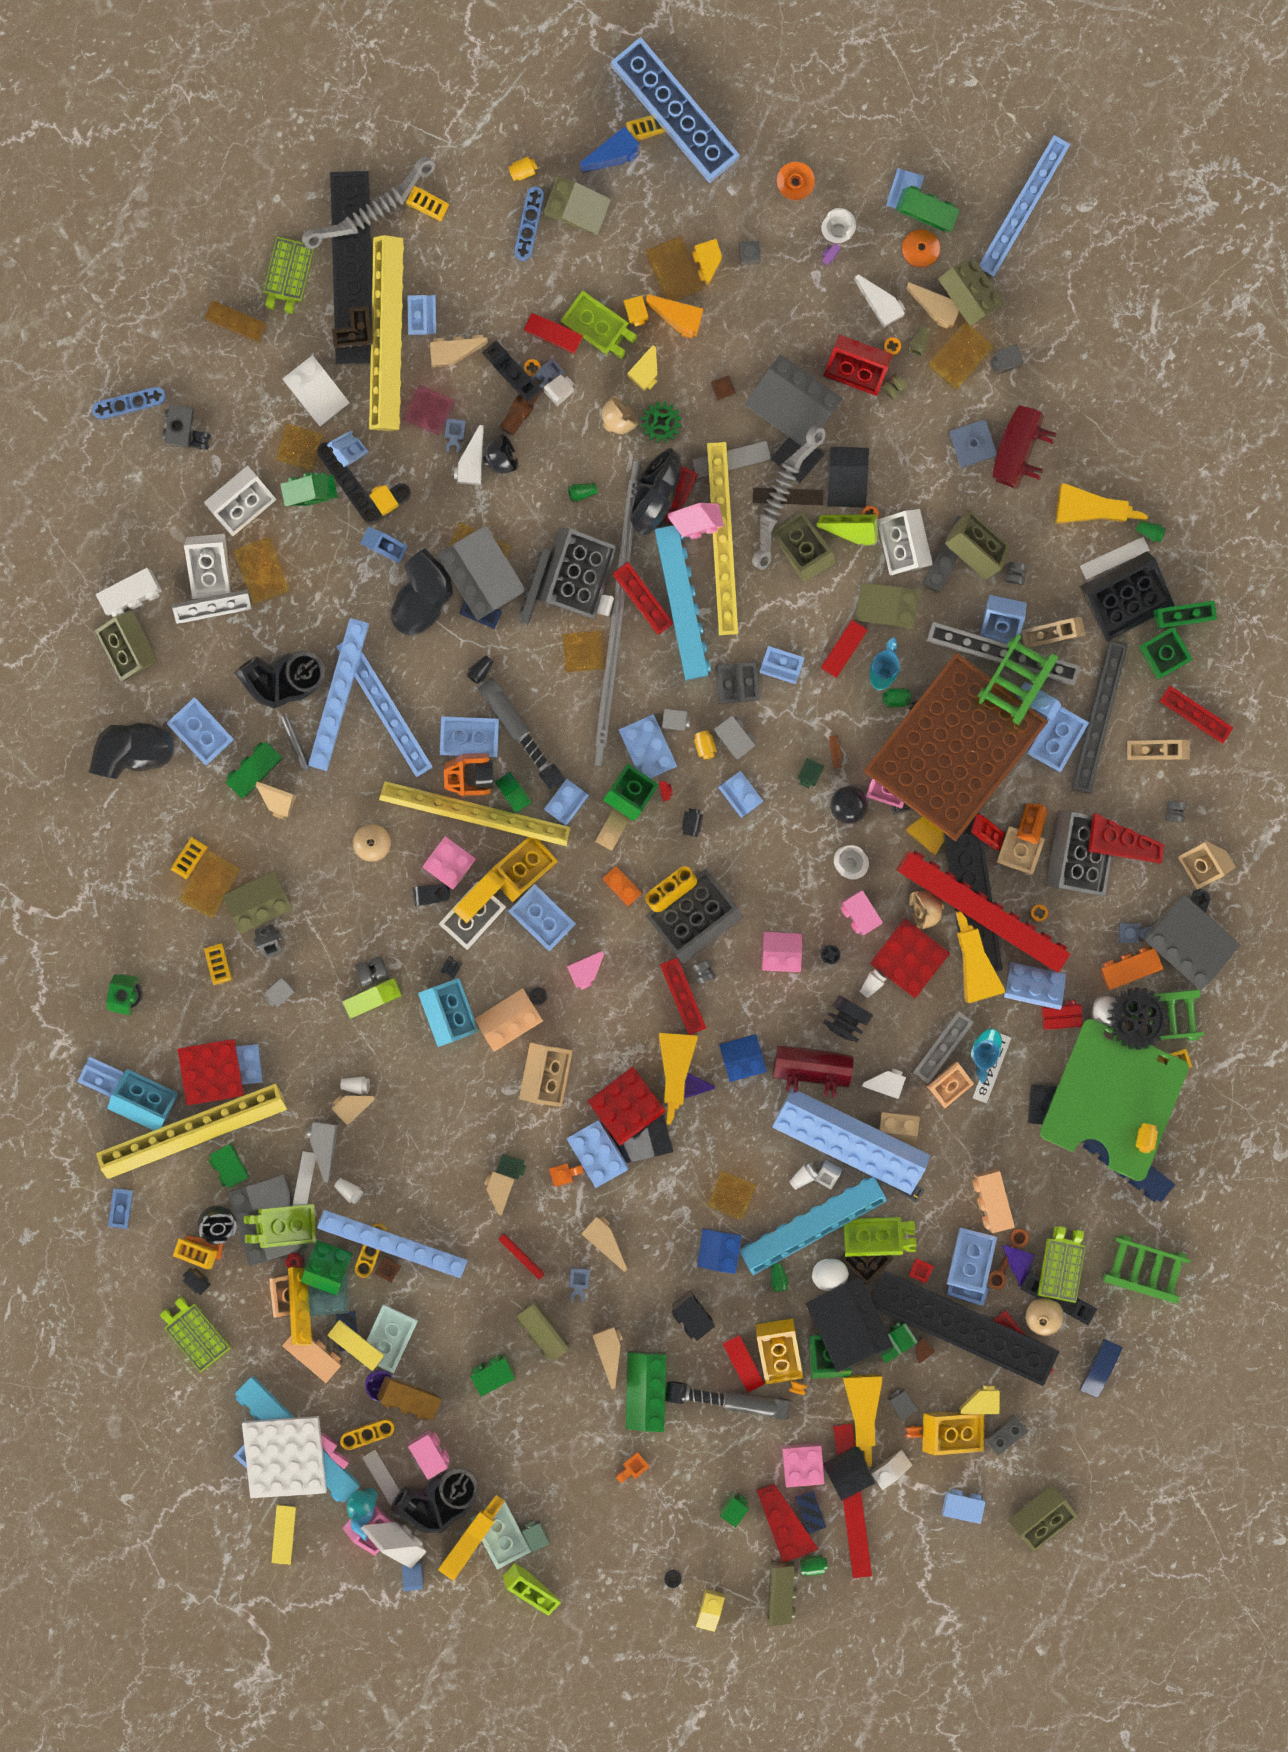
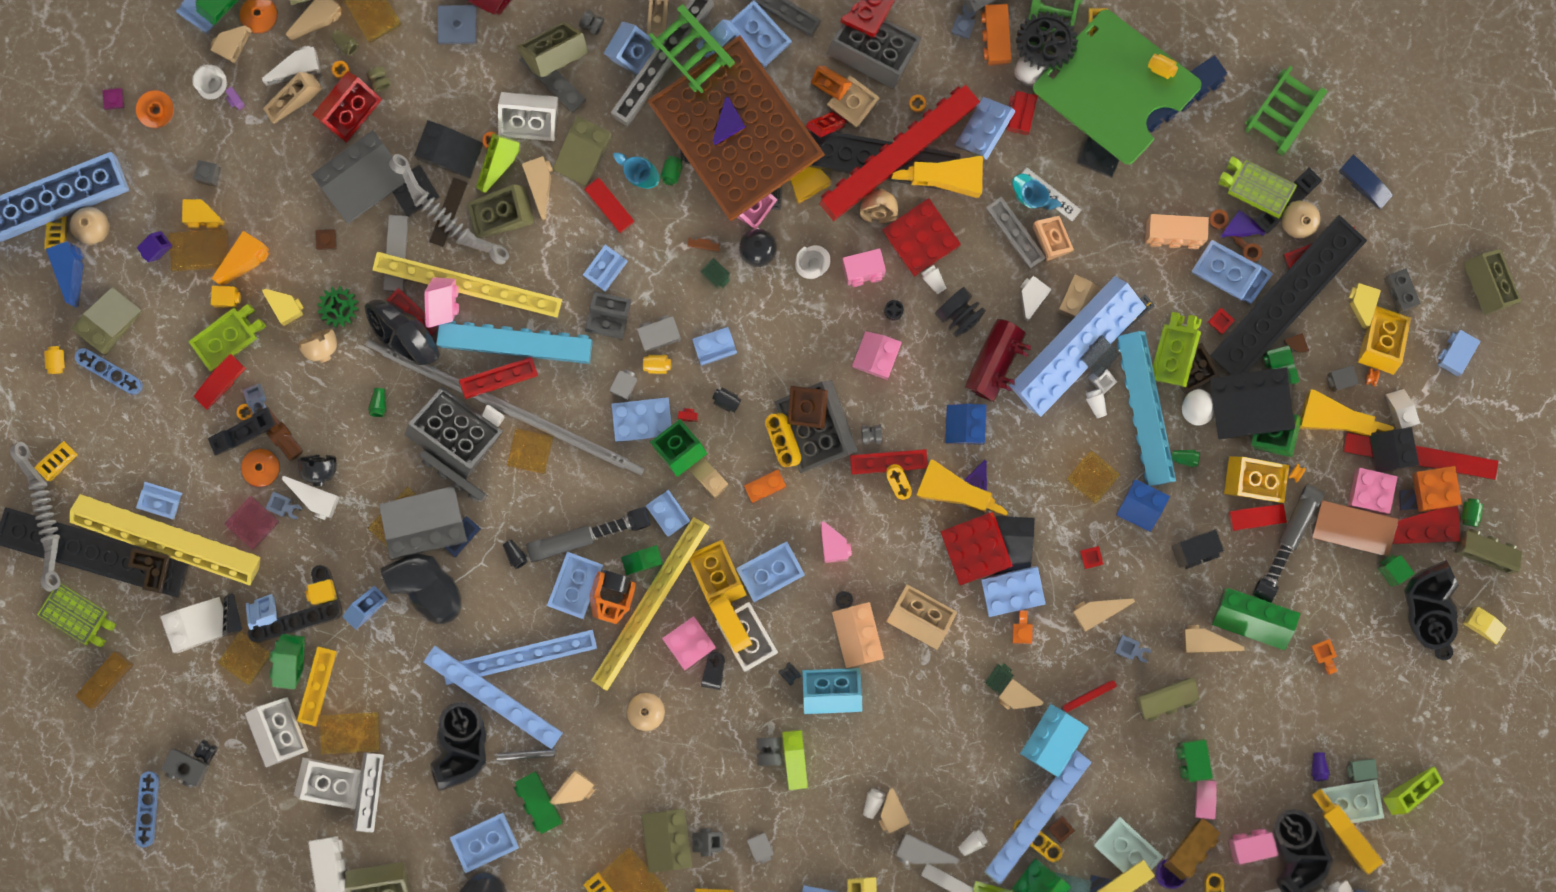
camera: 75 degrees left, 5 degrees down
(295, 524) = (316, 686): none -> yellow plate
(332, 421) = (231, 617): none -> black slope
(451, 352) = (203, 485): tan slope -> none
(459, 1396) = (1205, 799): none -> bright pink slope
(468, 1236) = (1054, 740): none -> medium azure slope
(487, 409) = (269, 470): none -> orange dish
(524, 1494) = (1319, 767): none -> dark purple cone
(559, 389) = (274, 393): white slope -> none
(654, 1217) = (1091, 557): none -> red plate
(662, 226) = (154, 246): none -> dark purple brick
(663, 157) = (89, 225): none -> tan cylinder
(669, 1015) = (902, 480): none -> yellow beam
(709, 902) = (807, 406): none -> reddish brown tile
(710, 1553) = (1430, 606): none -> black piece
(762, 1459) = (1355, 528): none -> nougat slope
(793, 137) = (113, 98): none -> magenta plate
(824, 1524) = (1436, 488): none -> orange brick
(845, 574) = (539, 180): none -> tan slope
(848, 1165) = (1099, 356): none -> clear smoke piece
(850, 309) = (293, 96): none -> tan slope
(882, 231) = (231, 42): none -> tan slope
(958, 738) = (728, 123): none -> dark purple tile

